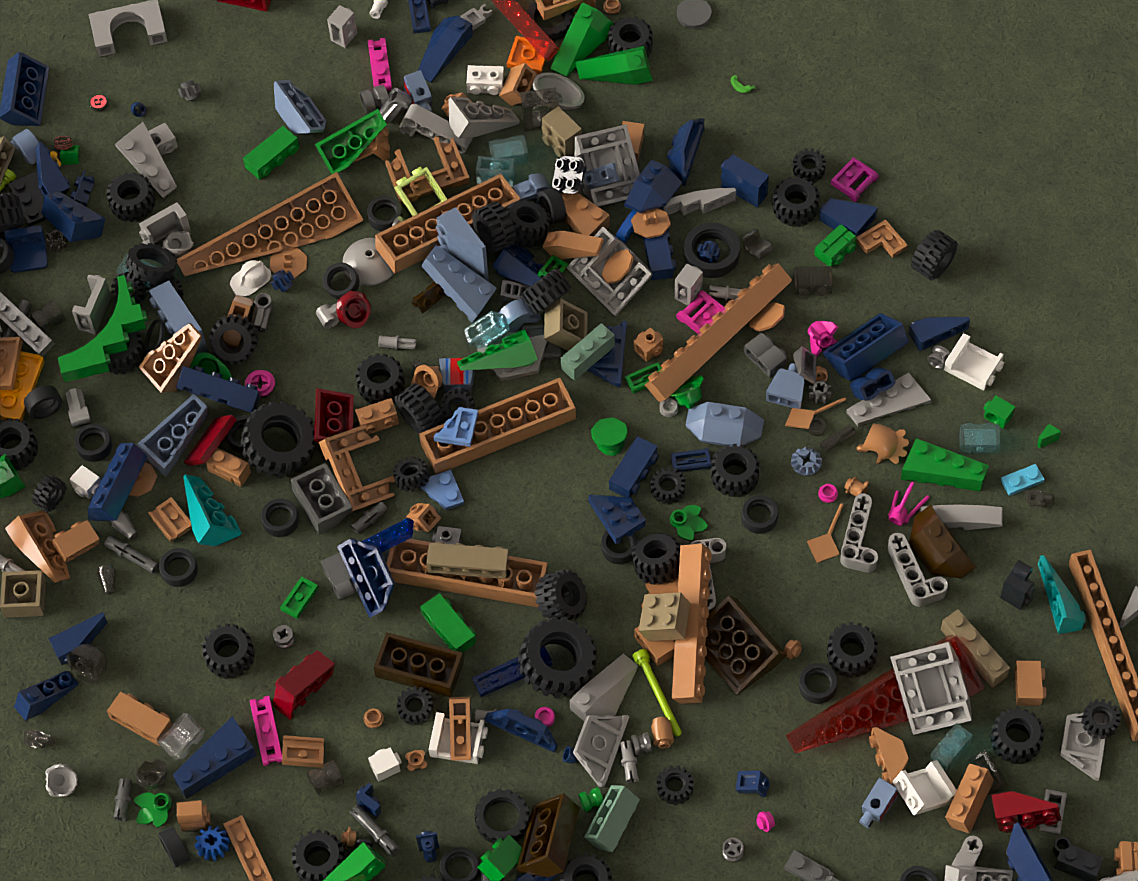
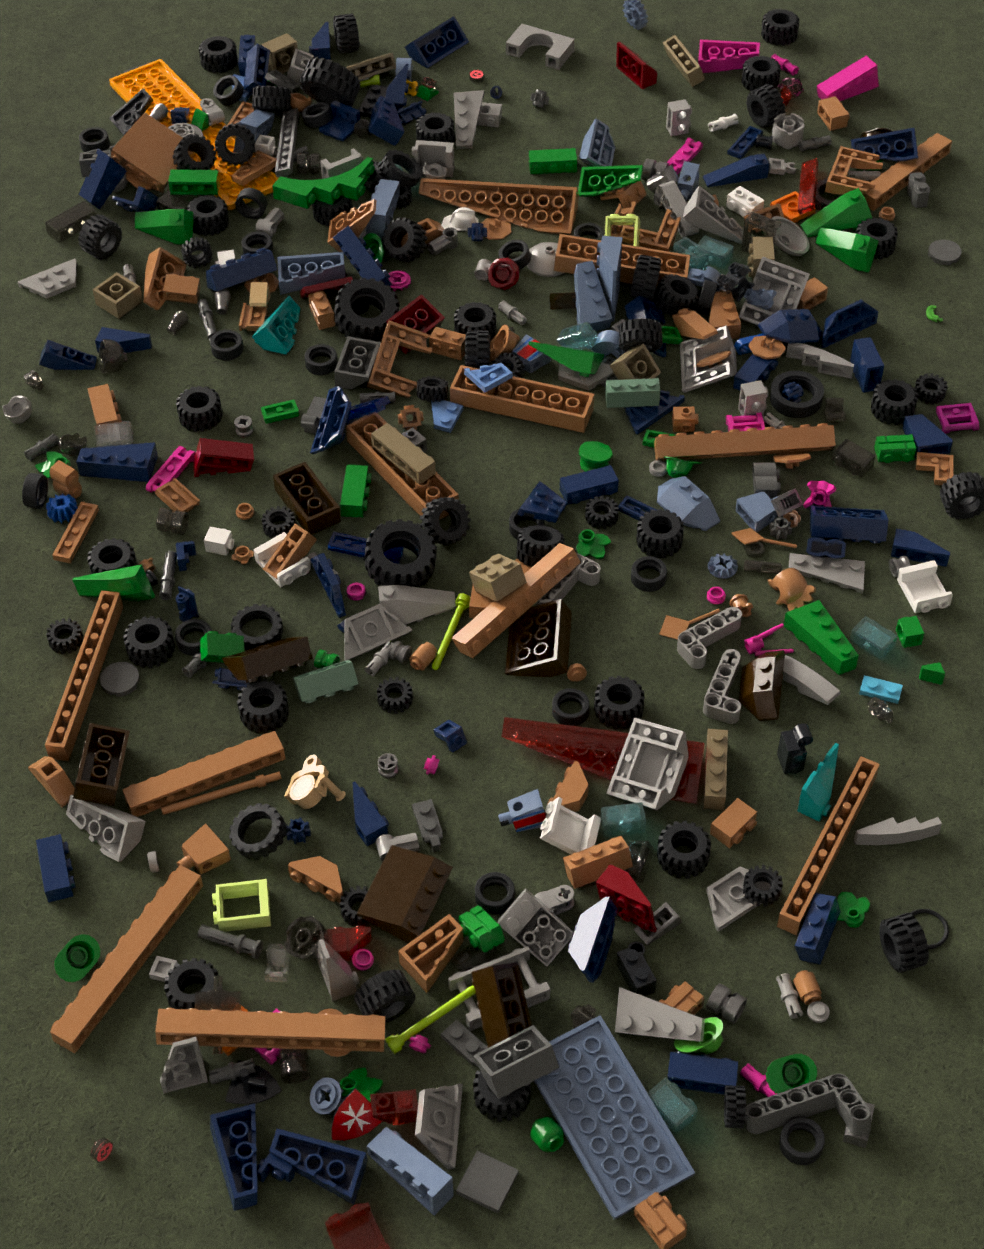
camera: 40 degrees right, 10 degrees down
(159, 495) = (259, 294): none -> tan slope

